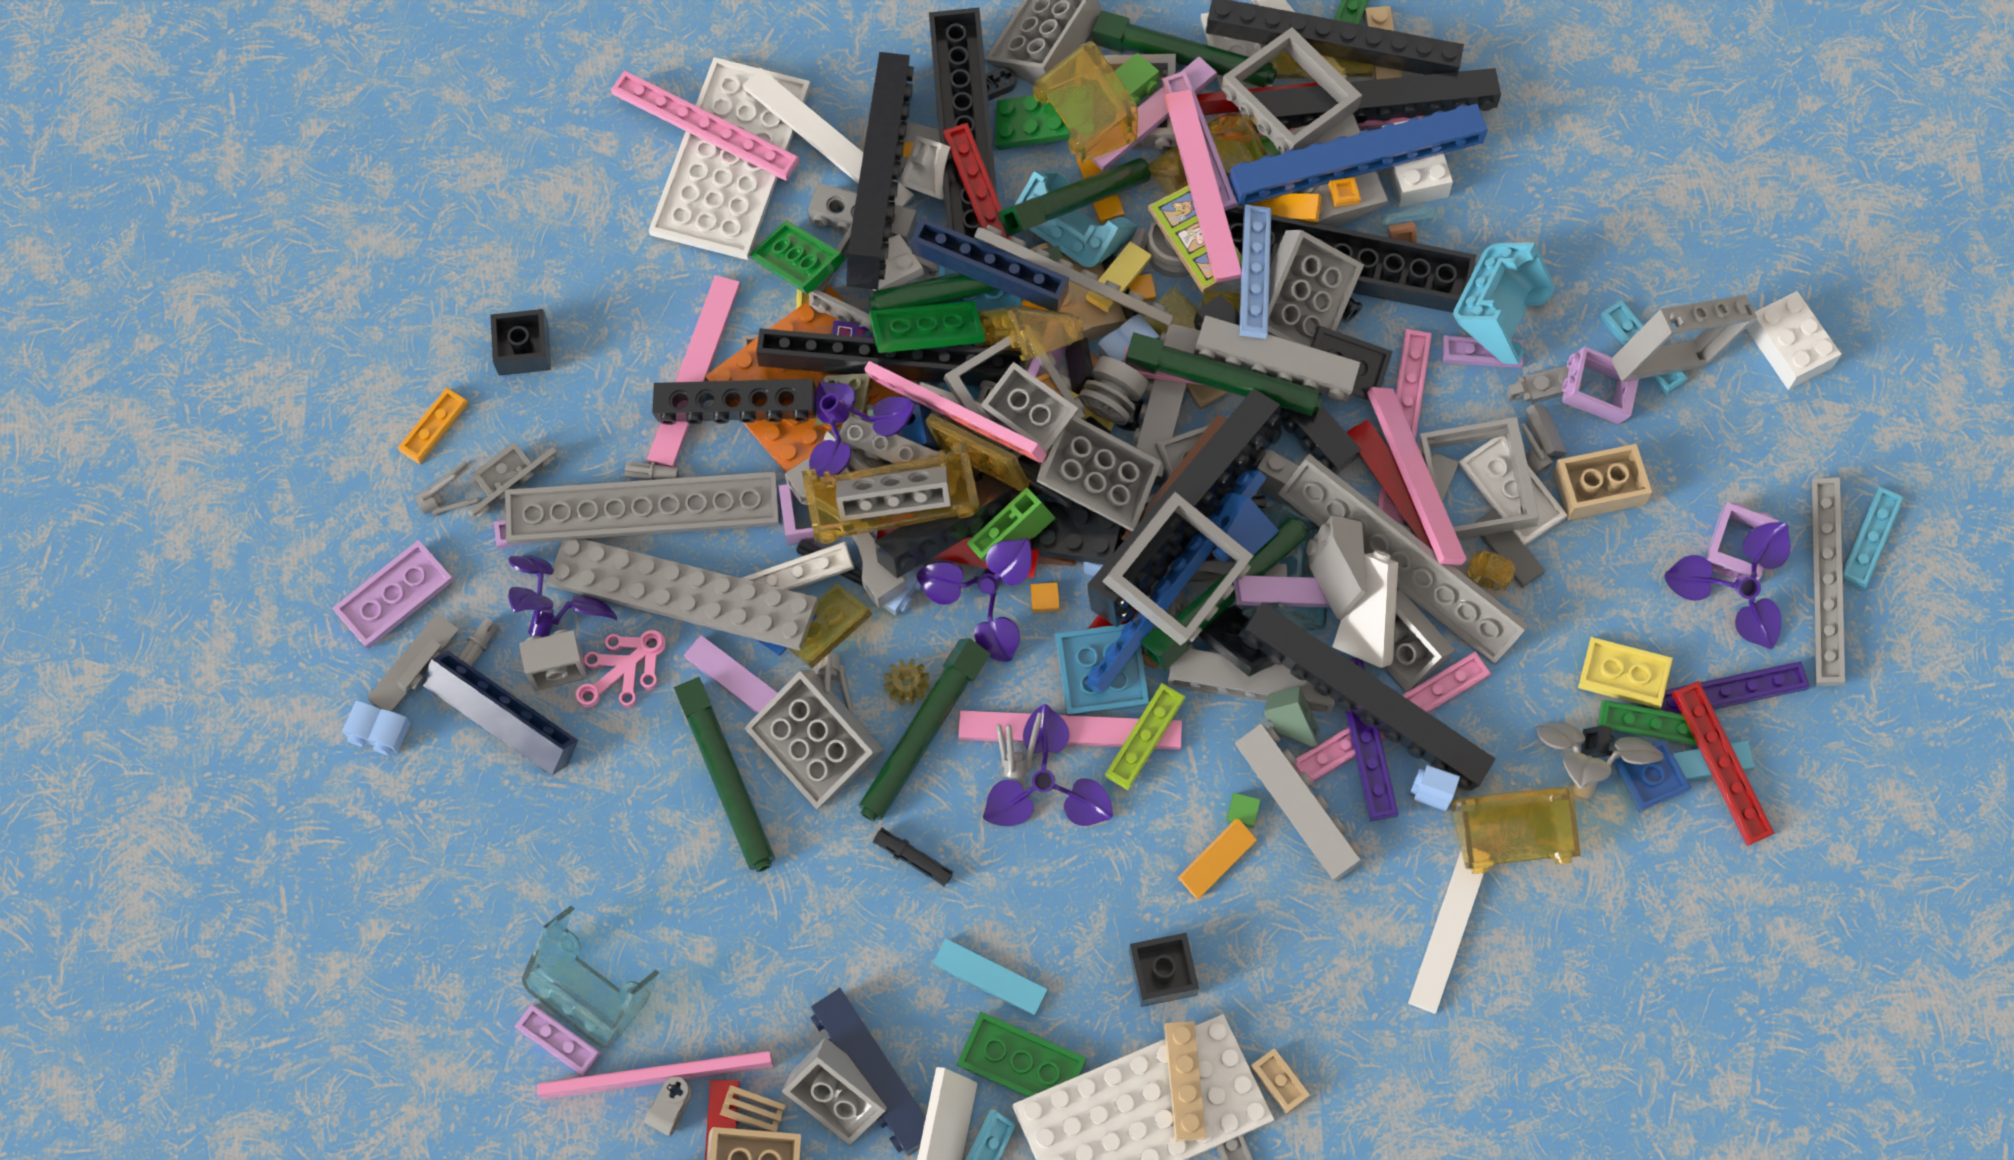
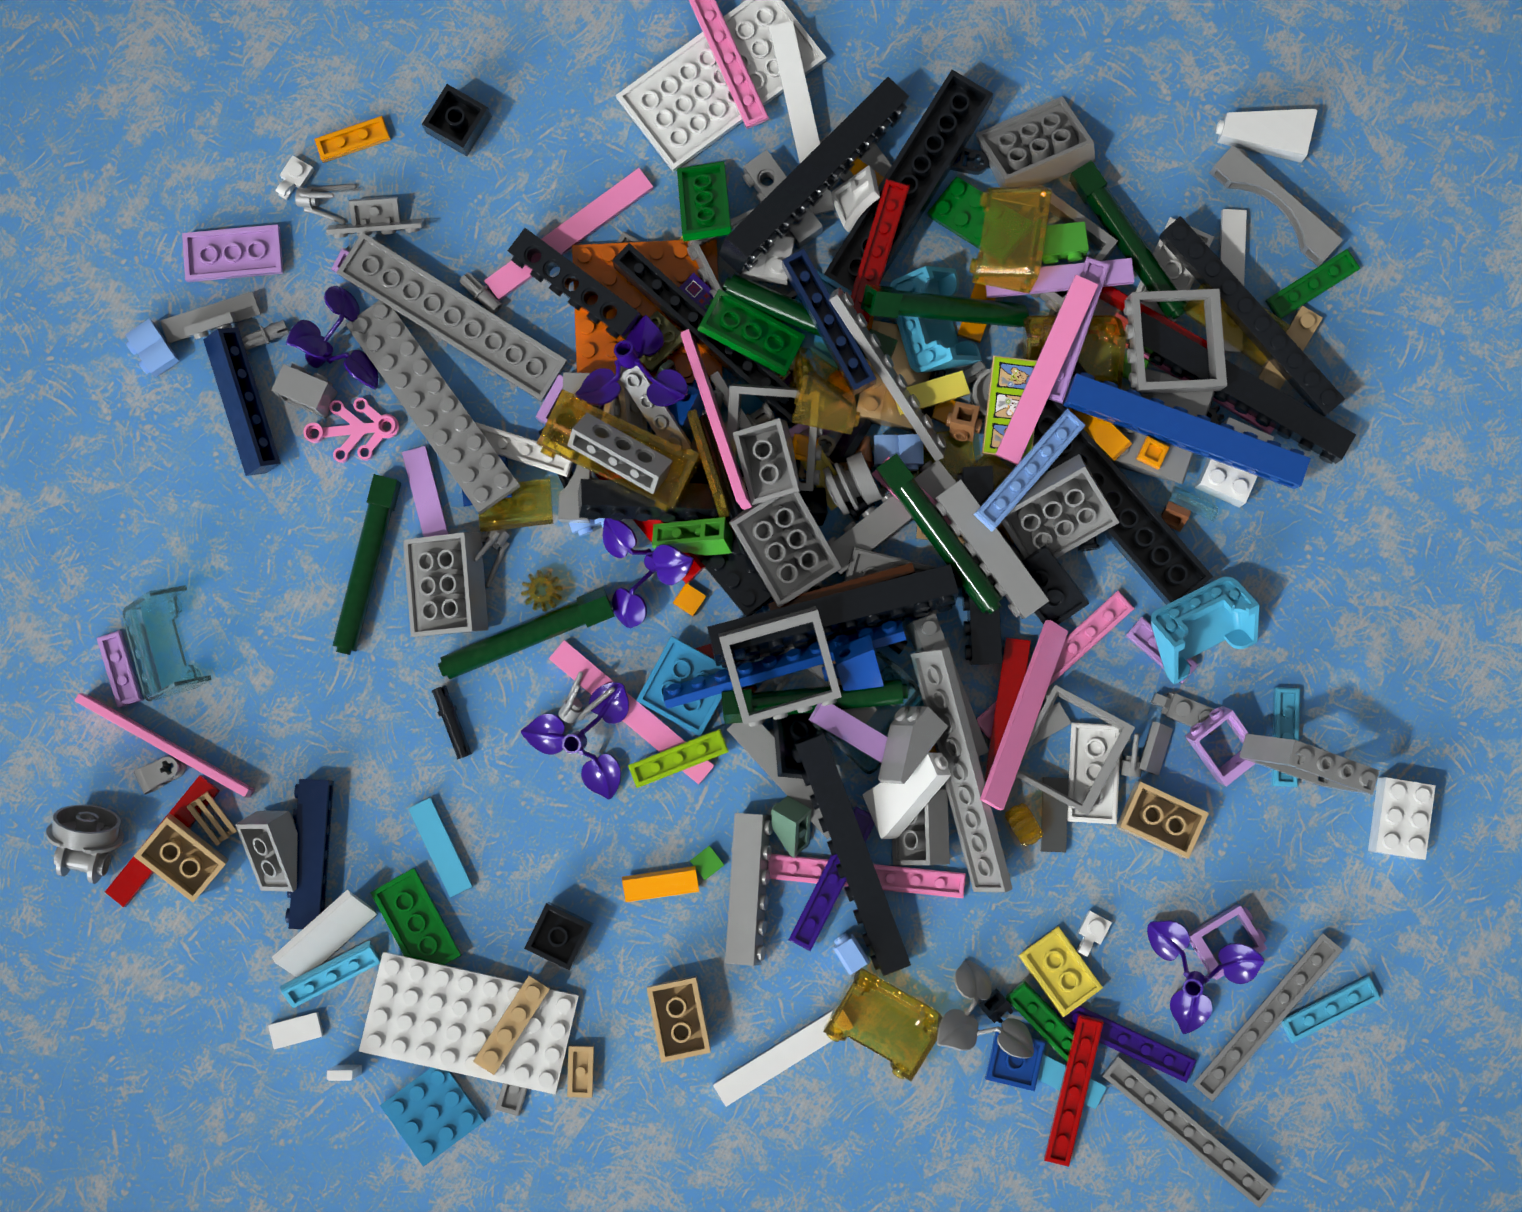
camera: 40 degrees right, 15 degrees up
(401, 490) = (295, 174): none -> white plate
(1166, 279) = (964, 422): none -> medium nougat brick
(1331, 961) = (679, 1019): none -> tan brick
(1623, 619) = (1094, 930): none -> white plate
(1847, 726) = (1188, 1131): none -> light grey plate

